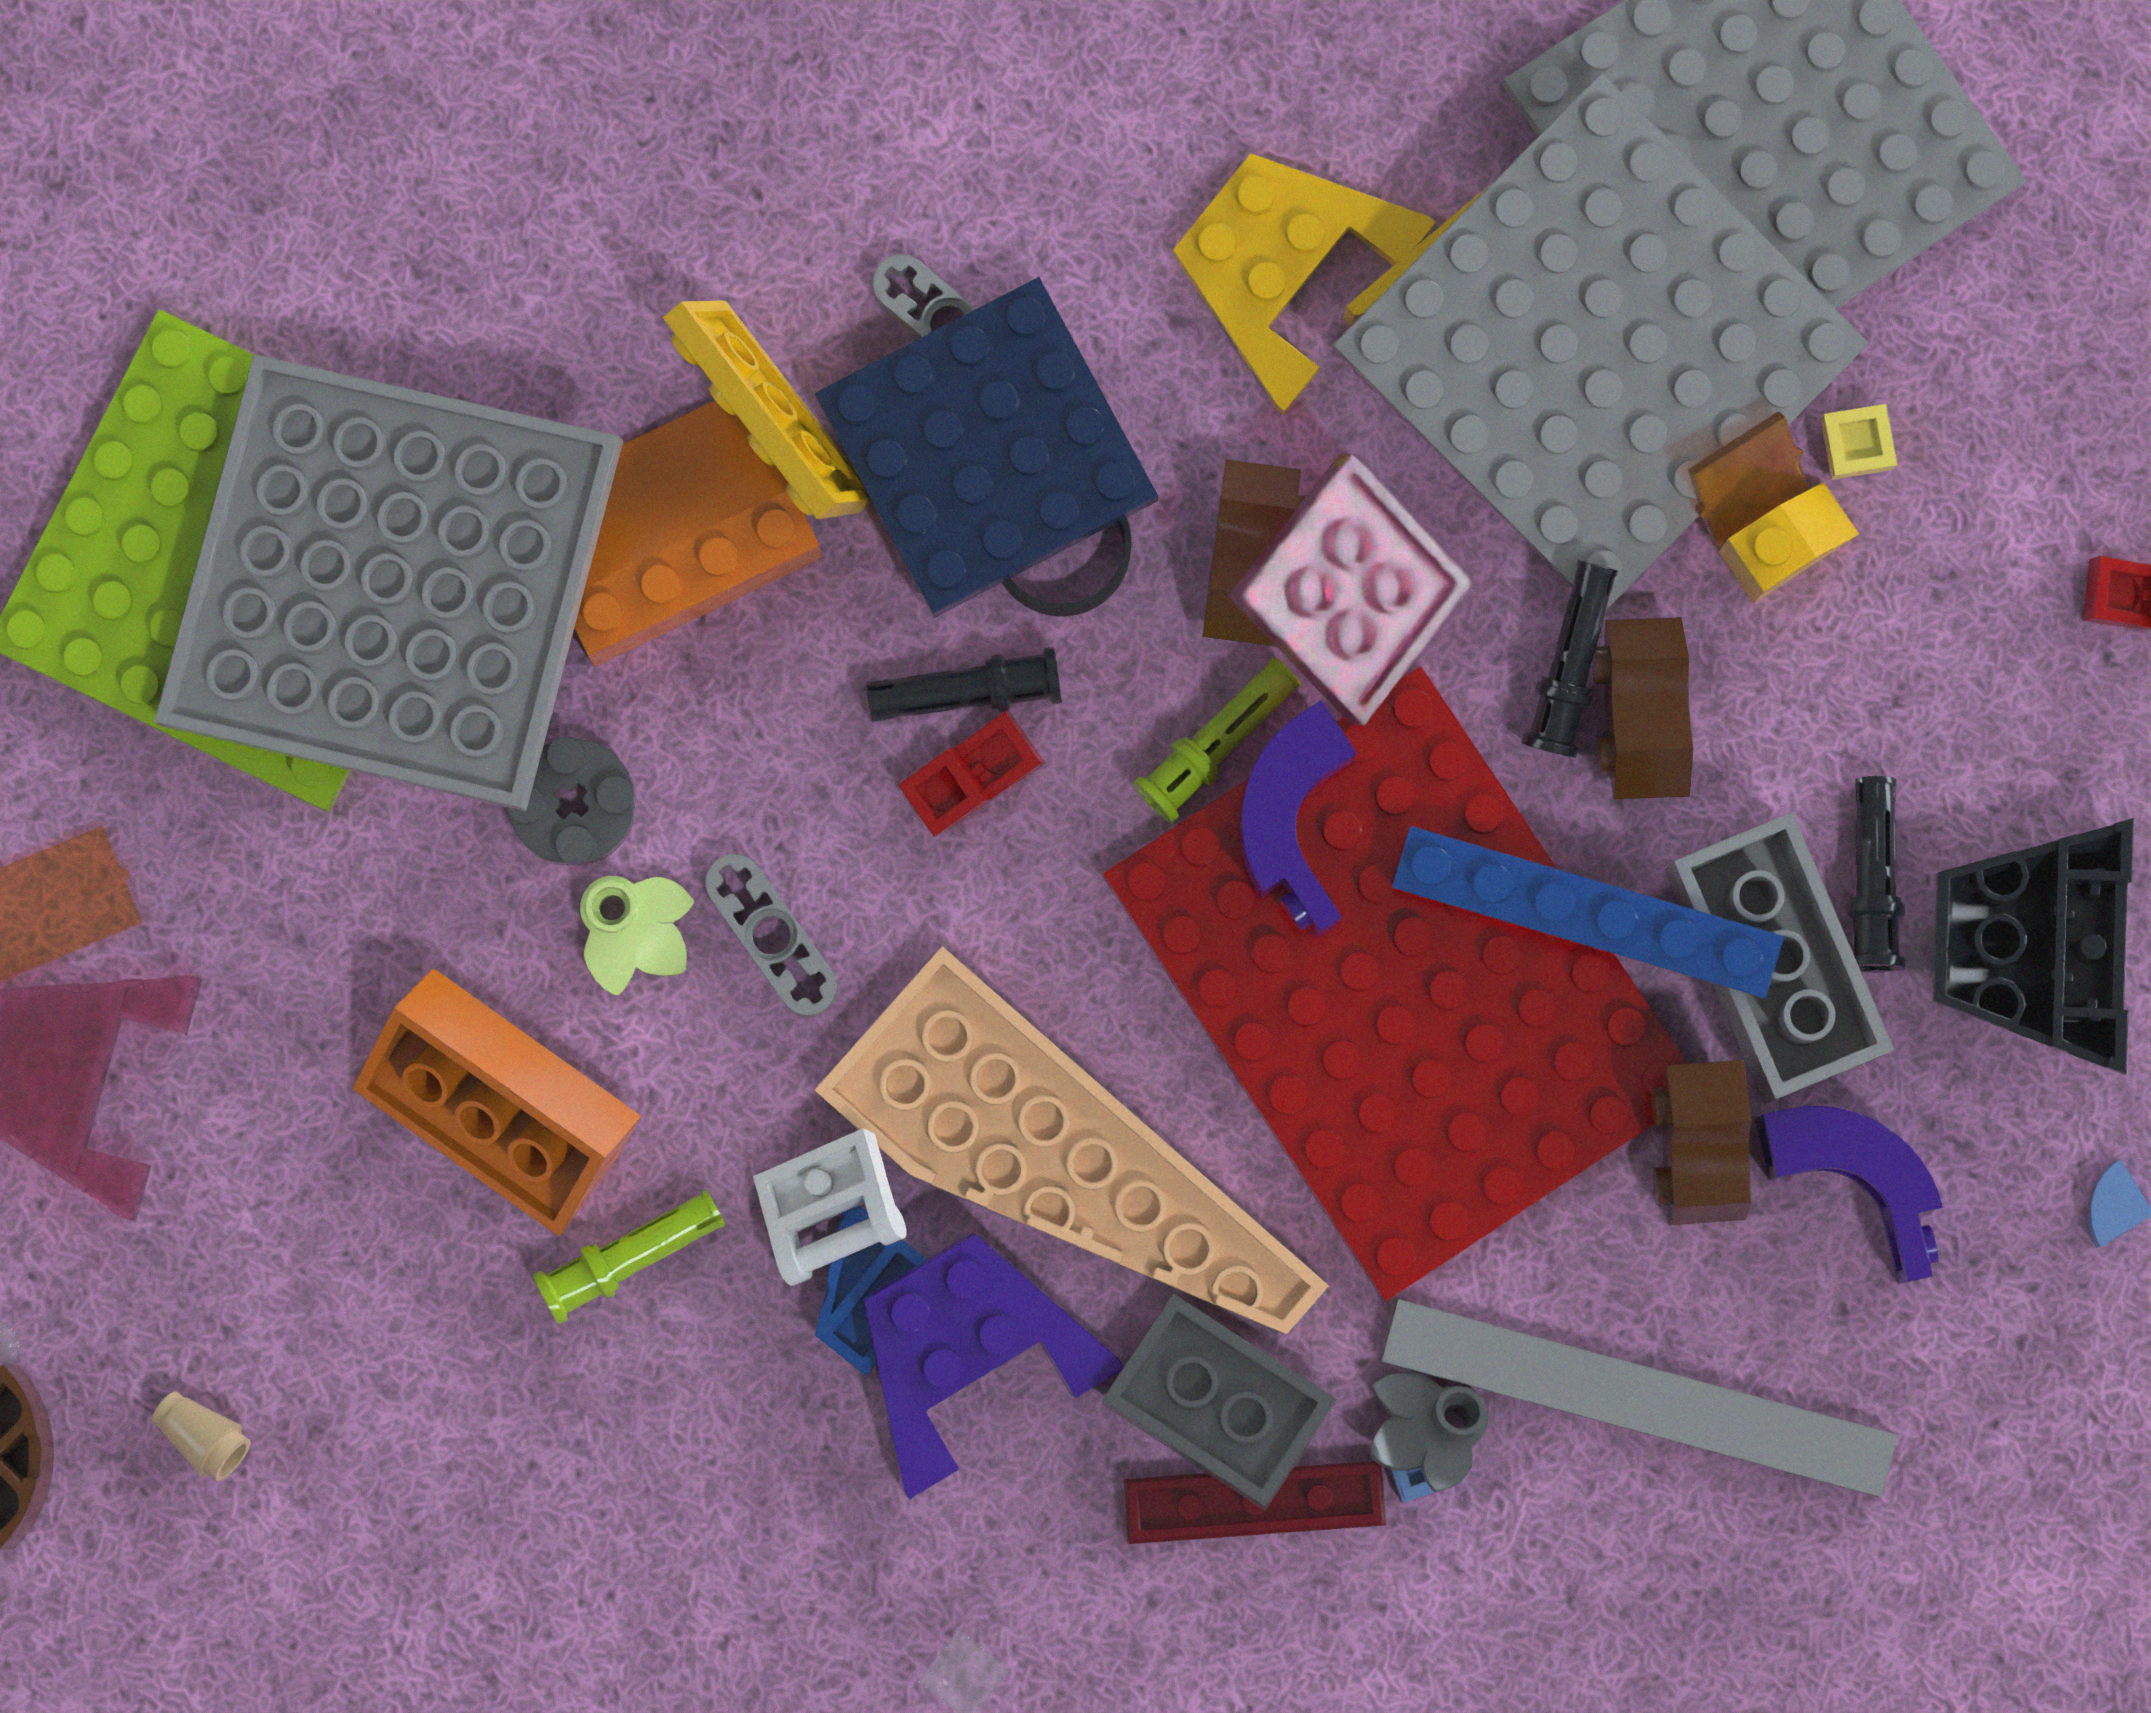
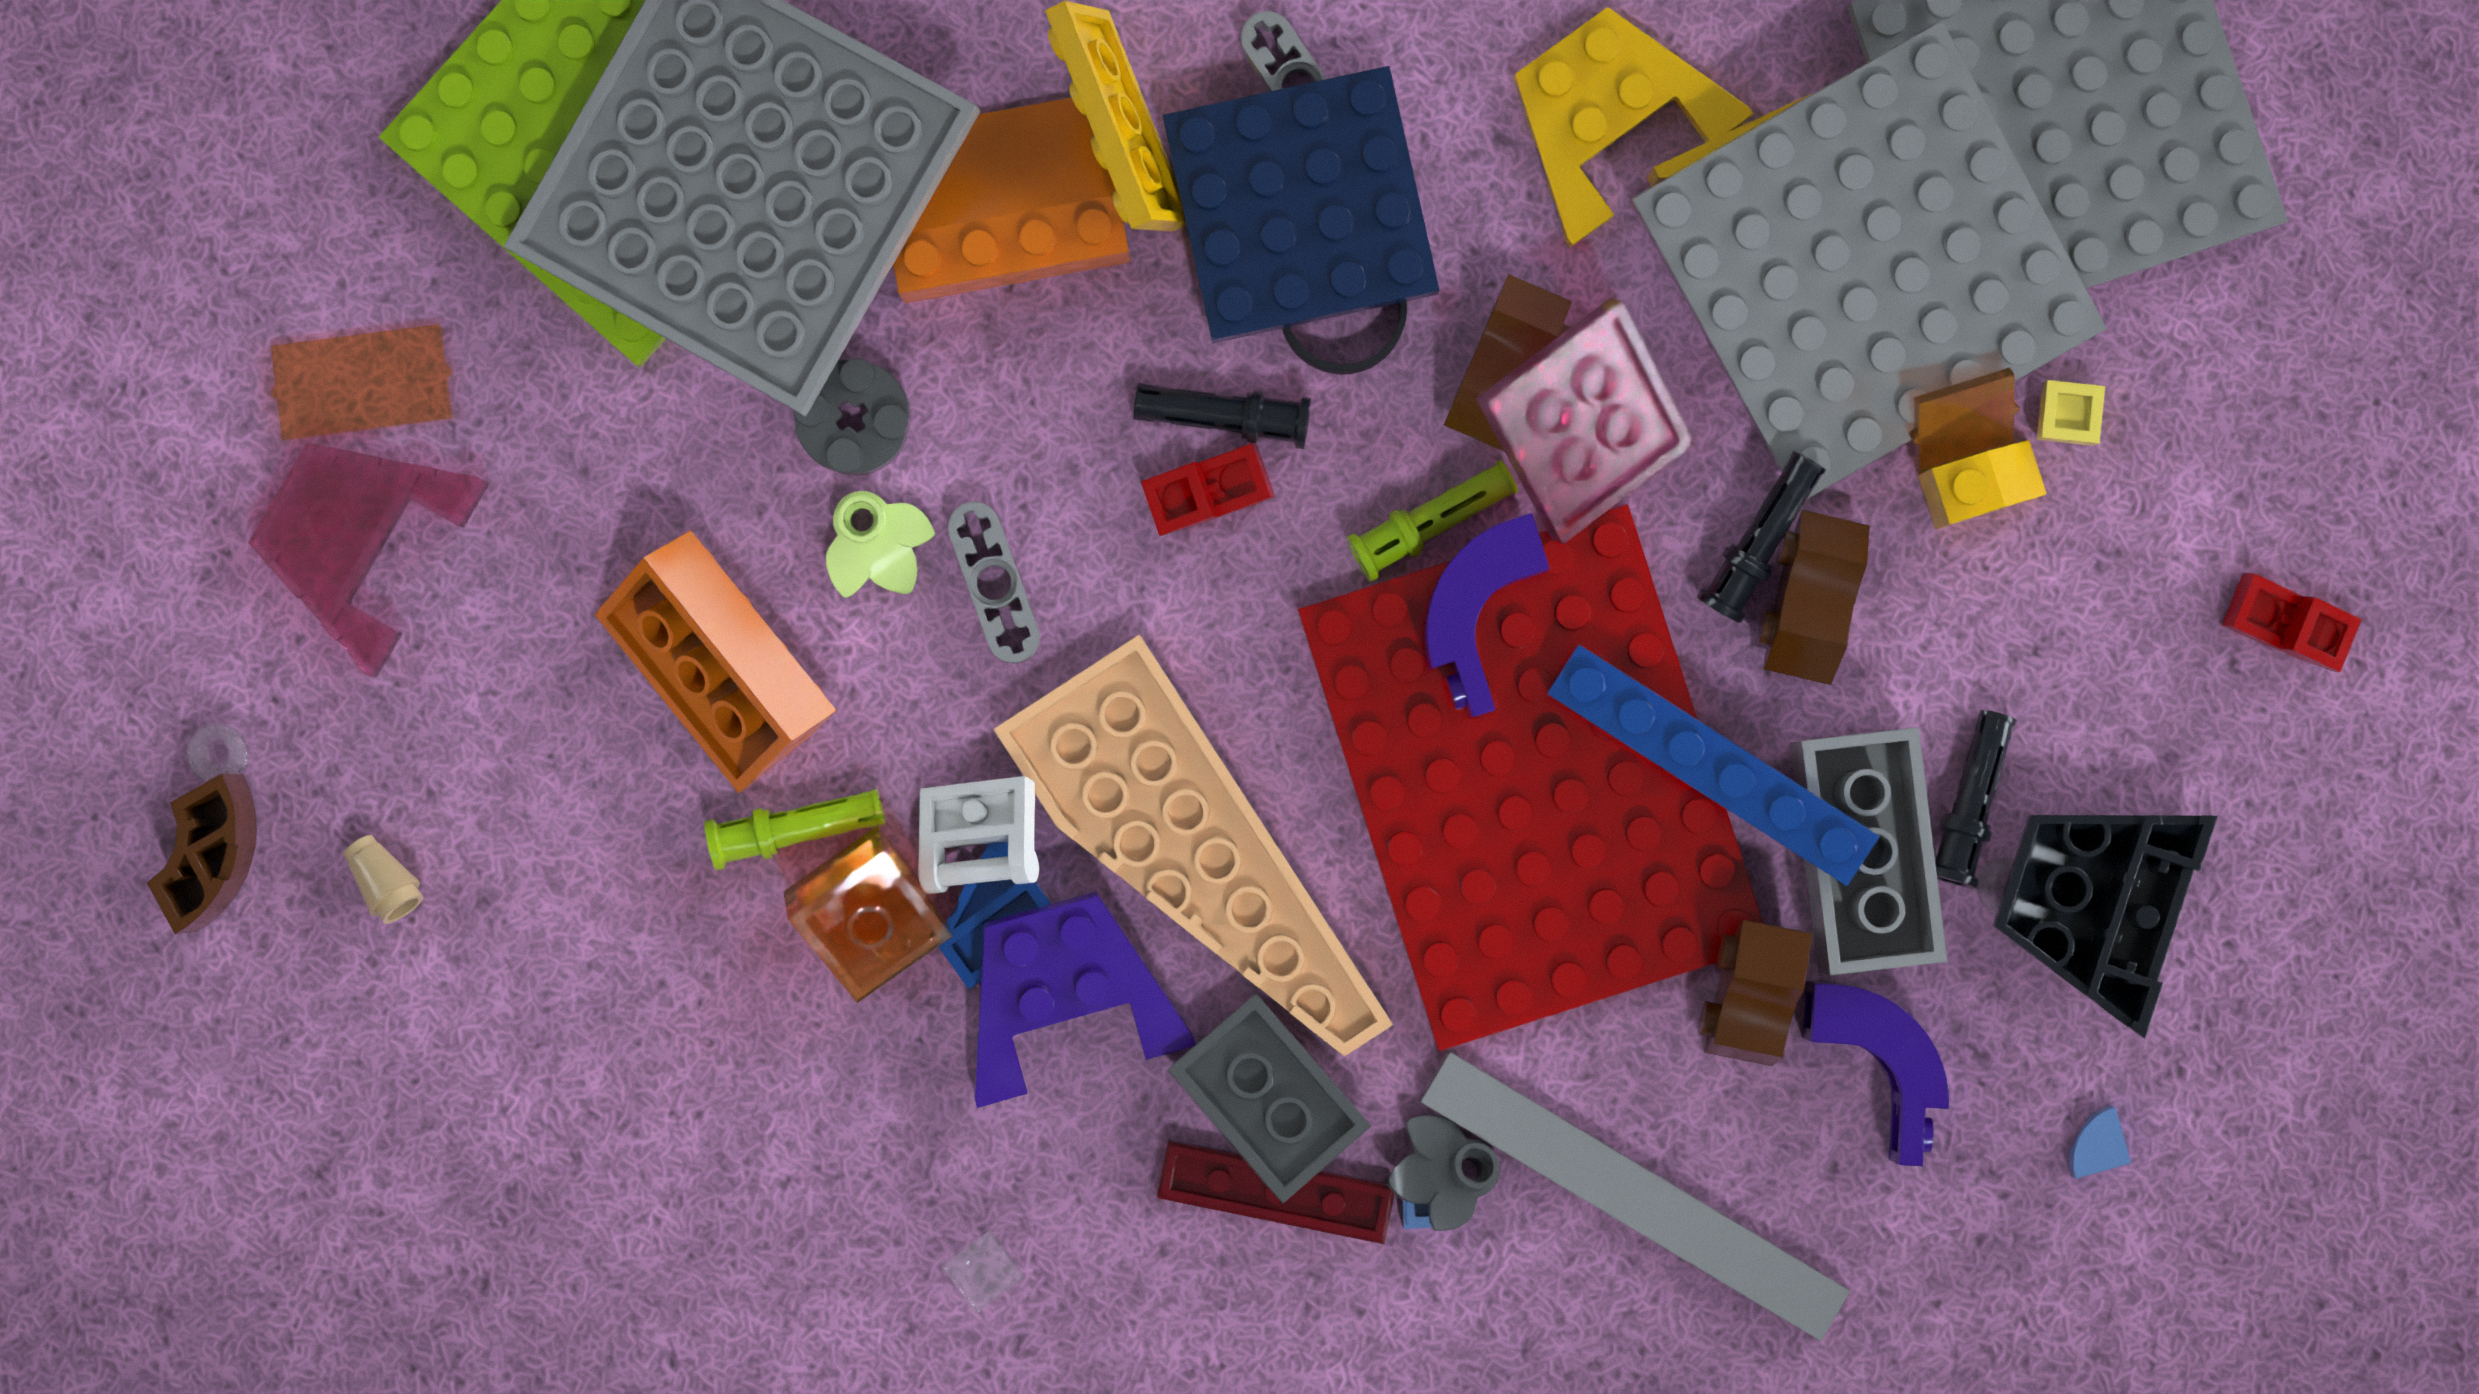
camera: 15 degrees right, 5 degrees up
(733, 1325) = (865, 914): none -> clear orange slope

